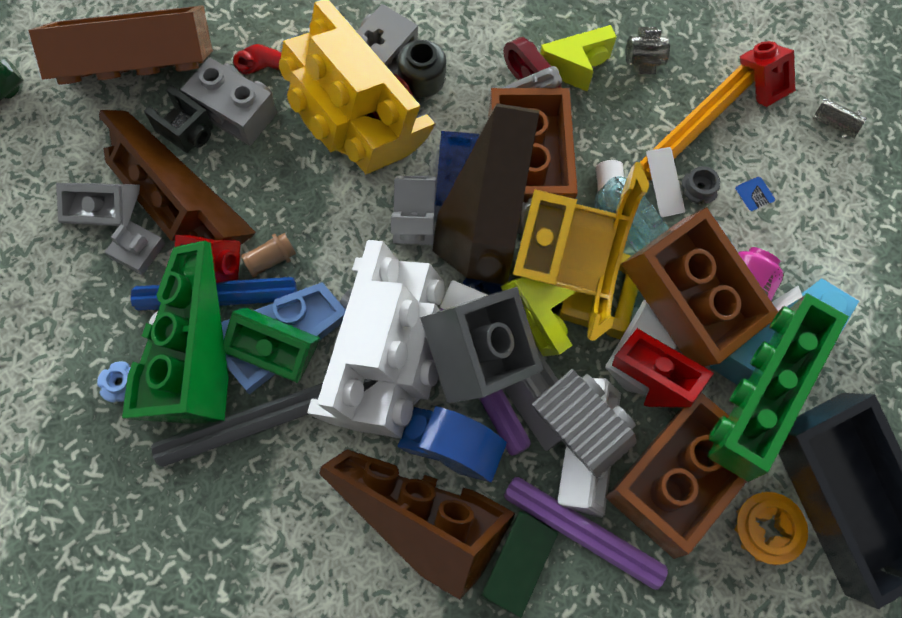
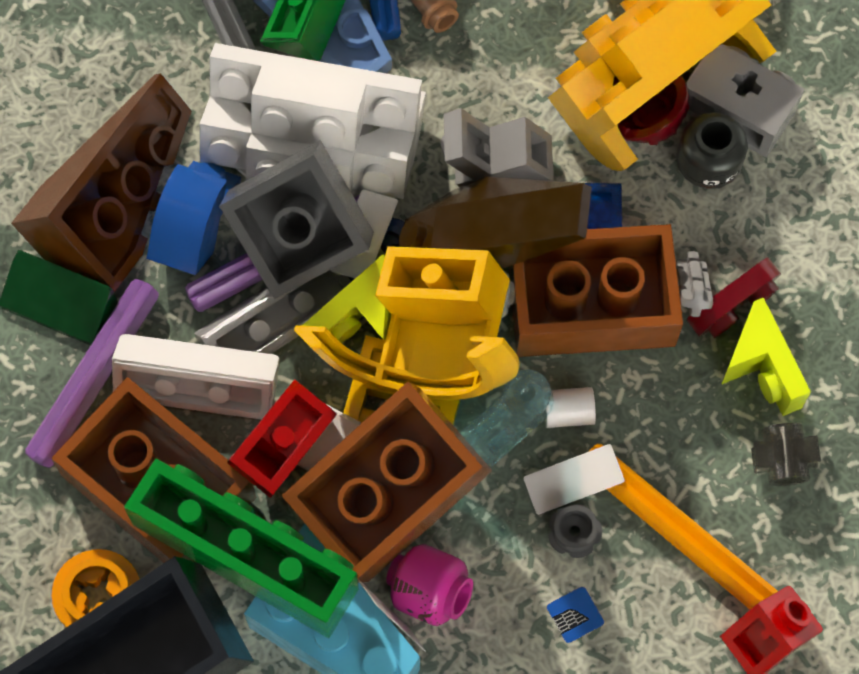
camera: 90 degrees right, 0 degrees up
(586, 422) = (207, 344): light grey brick -> none

